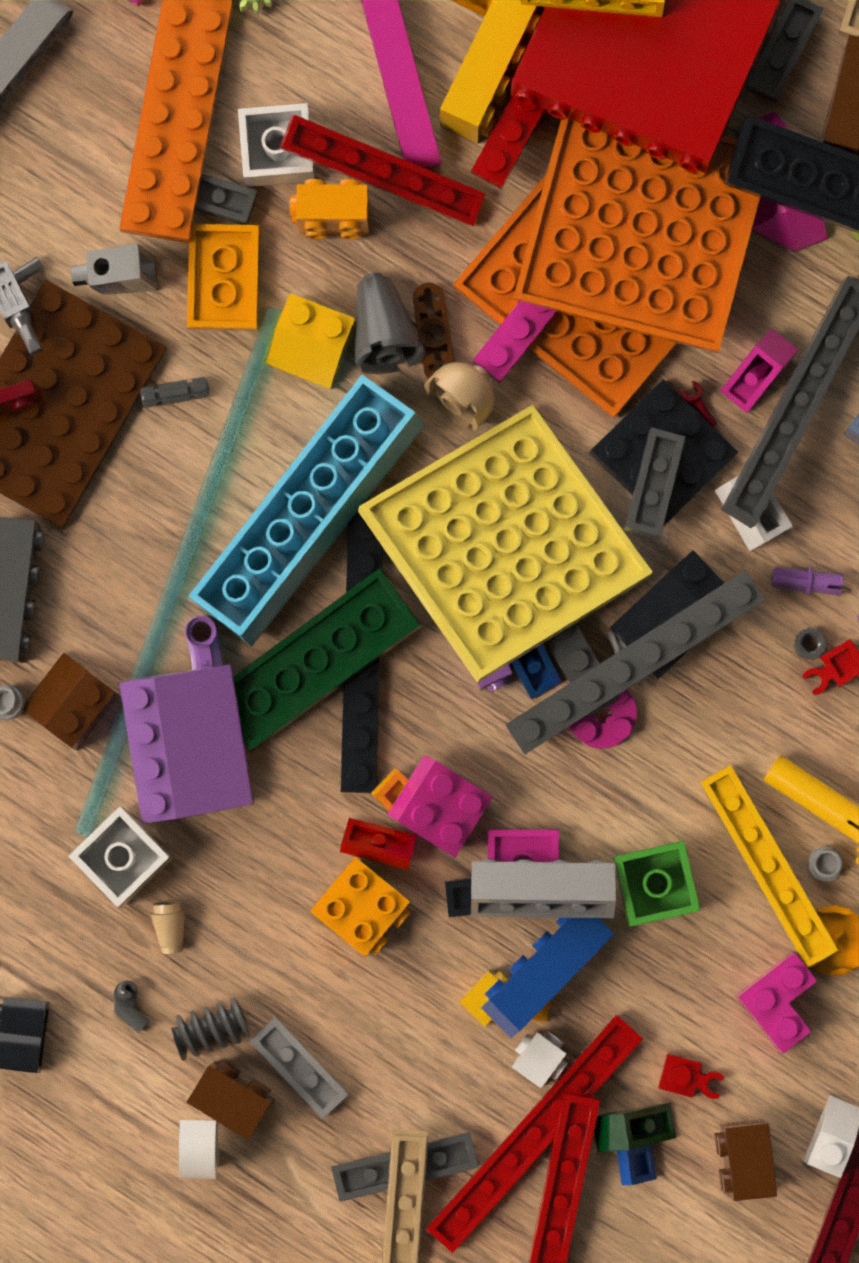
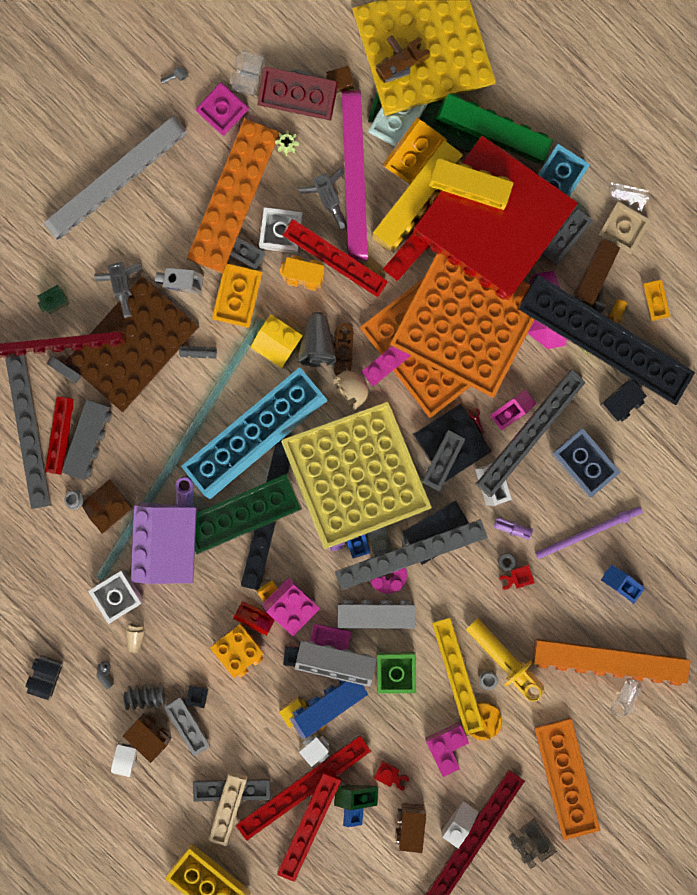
camera: 10 degrees right, 5 degrees up
(304, 1008) = (197, 696): none -> black plate
(345, 67) = (324, 187): none -> flat silver piece
(598, 789) = (376, 614): none -> light grey brick

